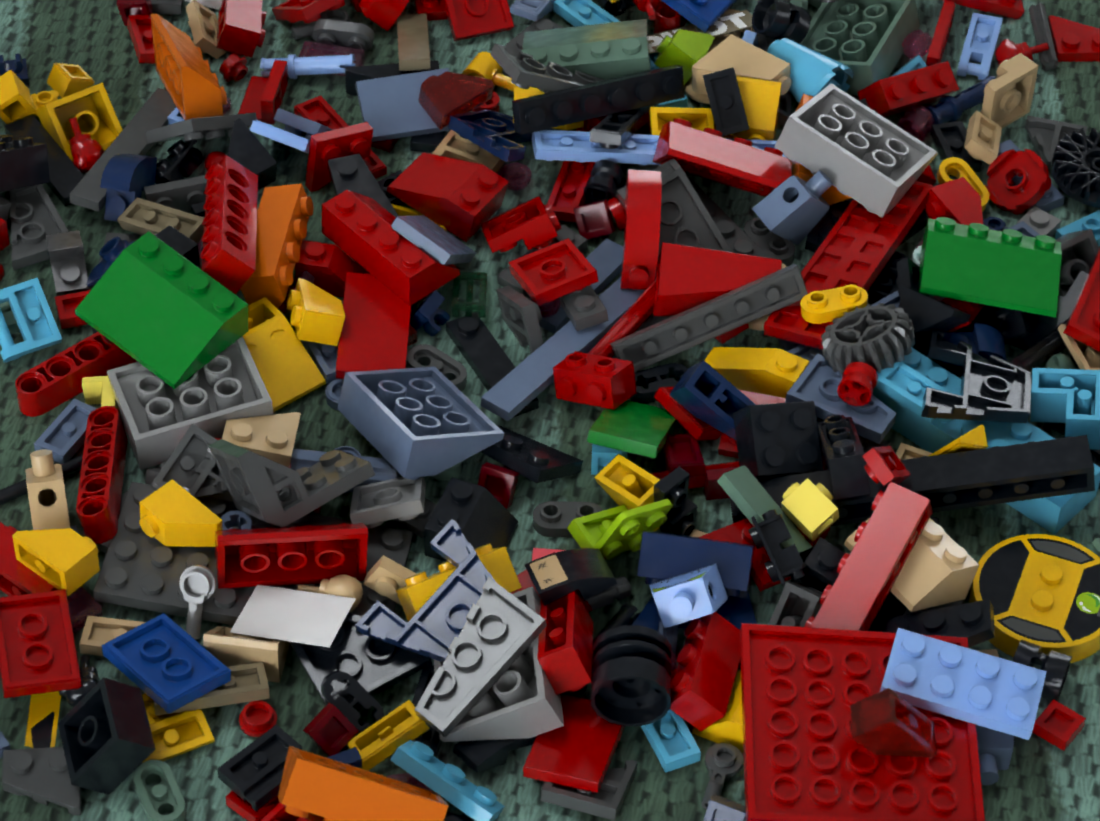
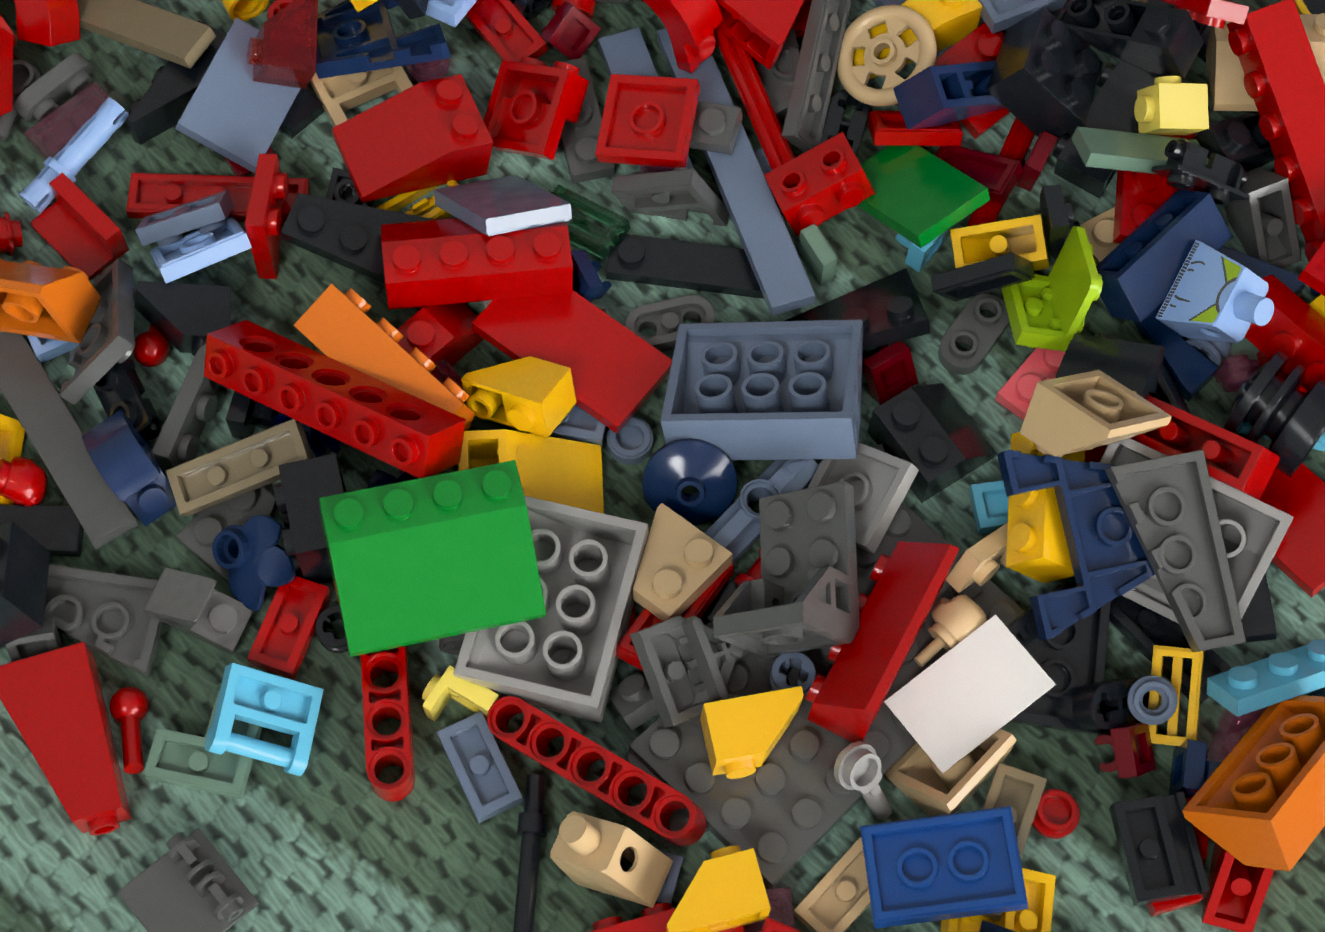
camera: 55 degrees left, 20 degrees up
(330, 421) = (693, 464): none -> dark blue dish
(362, 710) = (1167, 704): none -> sand blue plate
(515, 546) = (1086, 413): none -> tan slope
(549, 411) = (817, 254): none -> sand green tile
(601, 488) = (983, 277): none -> black tile
(716, 354) = (858, 36): none -> tan plate

